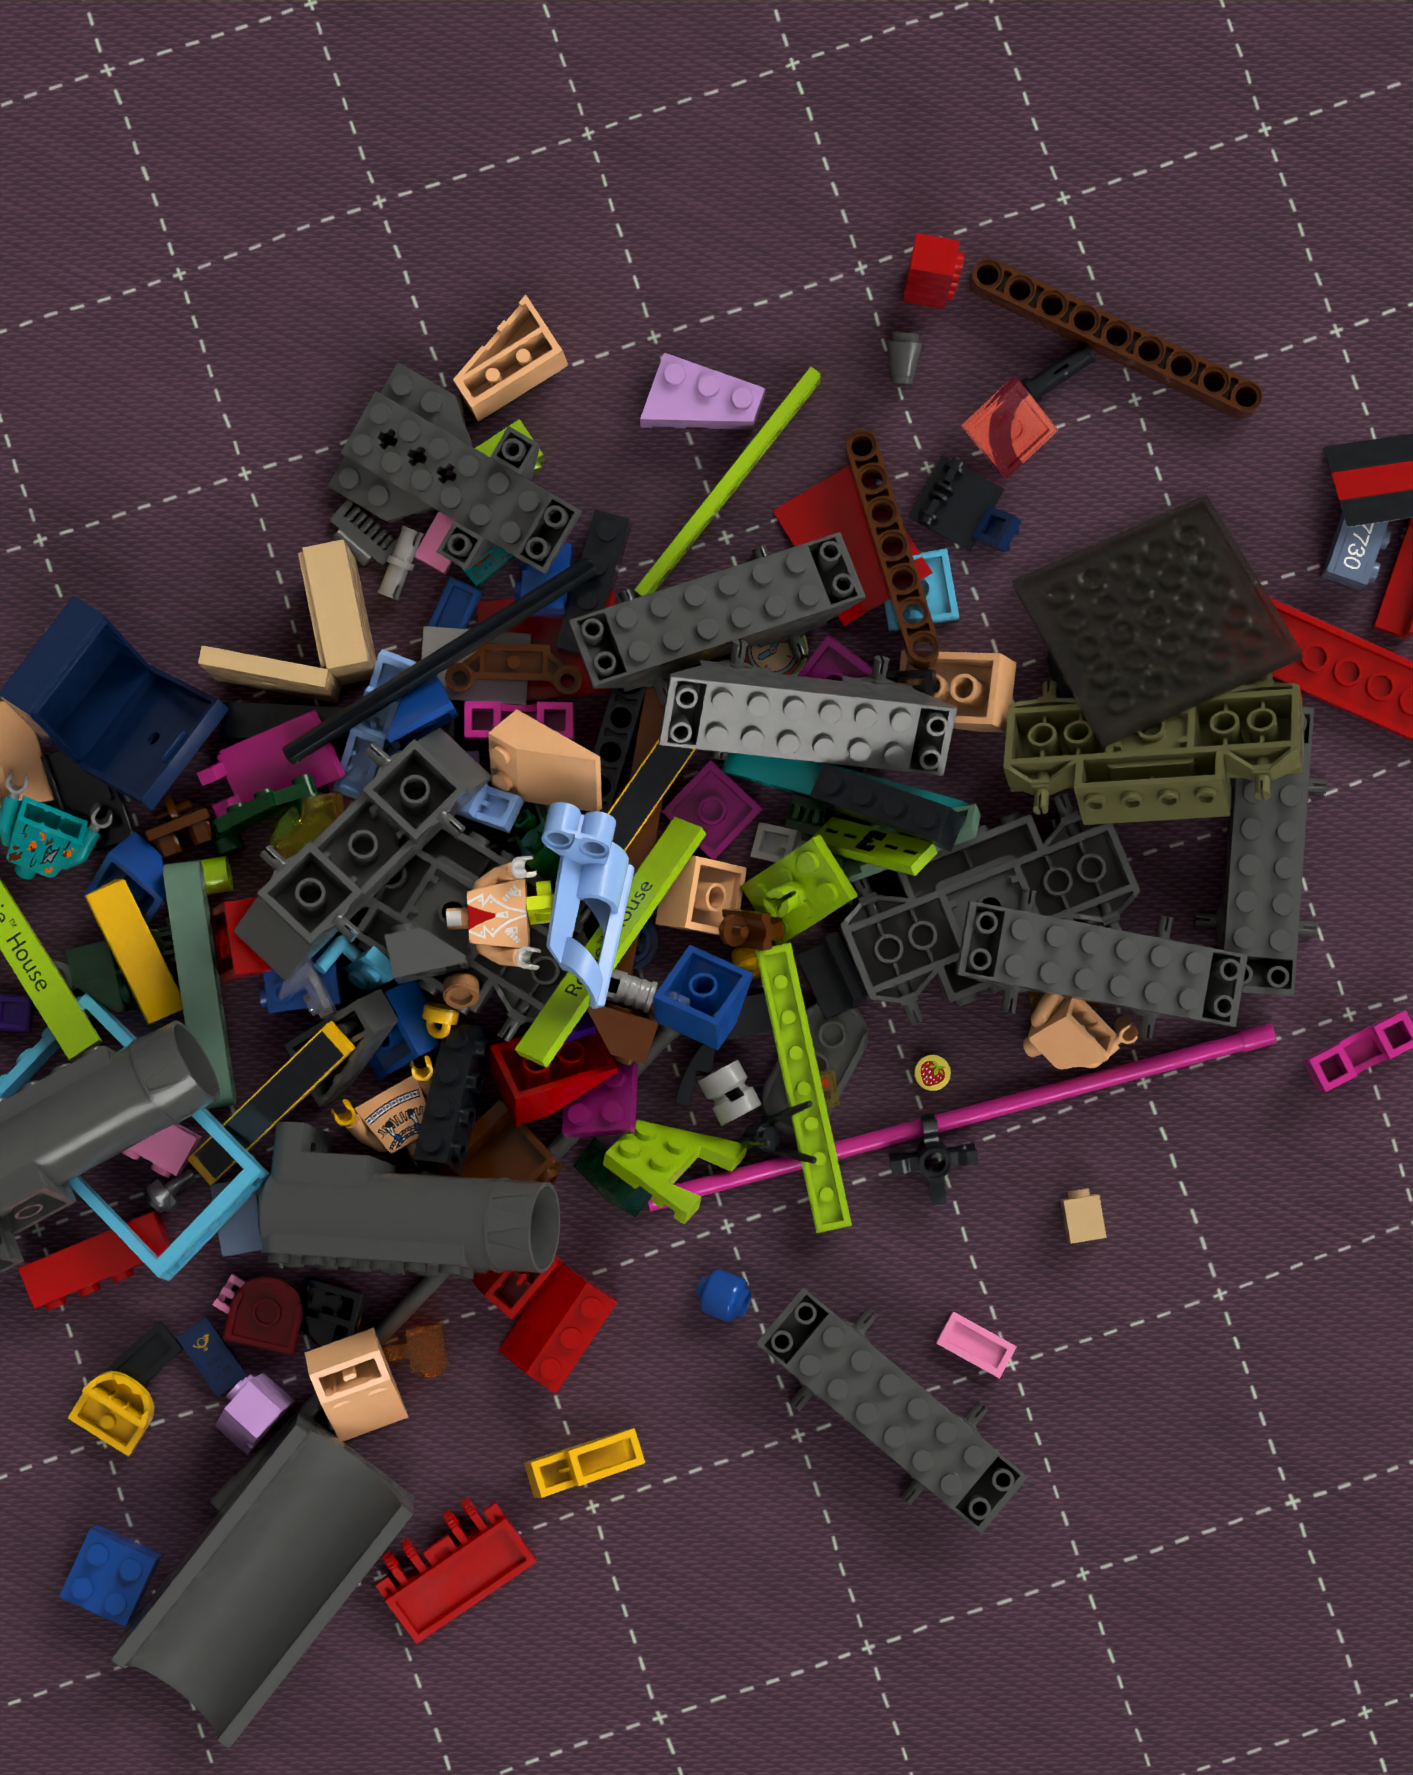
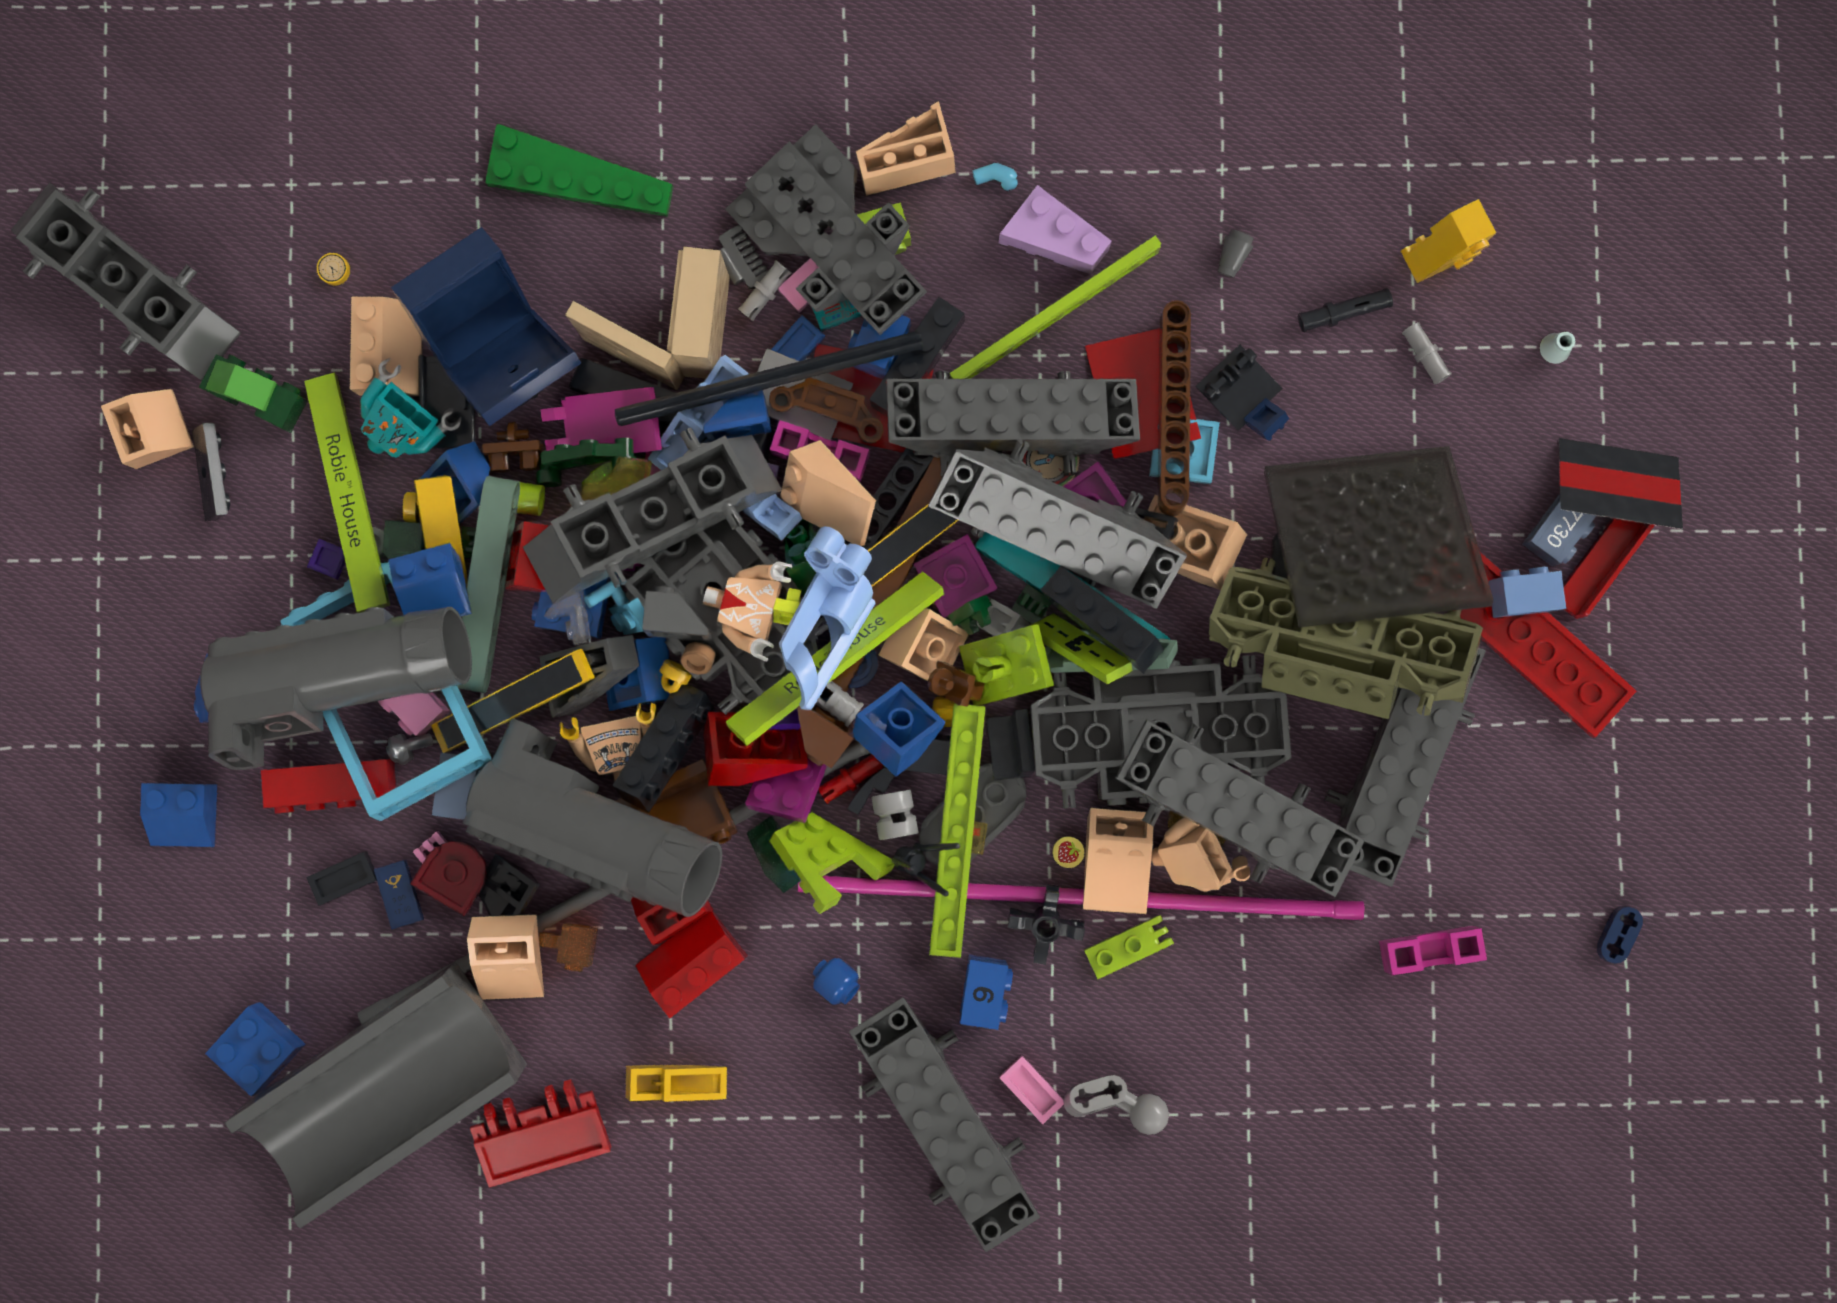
camera: 20 degrees right, 0 degrees up
(87, 926) = (410, 507): none -> yellow tile
(114, 1410) = (303, 913): yellow slope -> none
(118, 504) = (551, 170): none -> green wing
(139, 1000) = (430, 580): none -> blue slope
(252, 1410) = (417, 949): lavender wedge -> none
(615, 350) = (997, 172): none -> medium azure arm
(668, 1068) = (850, 778): none -> red pin
(742, 844) = (970, 613): none -> dark green tile
(889, 1254) = (984, 992): none -> blue brick
(933, 271) = (1283, 186): red brick -> none
(988, 1065) = (1117, 861): none -> light nougat slope
(1009, 427) = (1303, 338): clear red tile -> none
(1030, 1156) = (1127, 947): none -> lime hinge
(1082, 1216) = (1155, 1012): tan brick -> none
(1108, 1328) = (1147, 1112): none -> light grey beam
(1133, 336) = (1430, 296): reddish brown beam -> none
(1136, 271) = (1452, 242): none -> yellow wedge
(1149, 400) = (1426, 353): none -> light grey pin
(1286, 355) = (1557, 346): none -> light aqua cone
(1340, 630) = (1527, 594): none -> medium blue brick

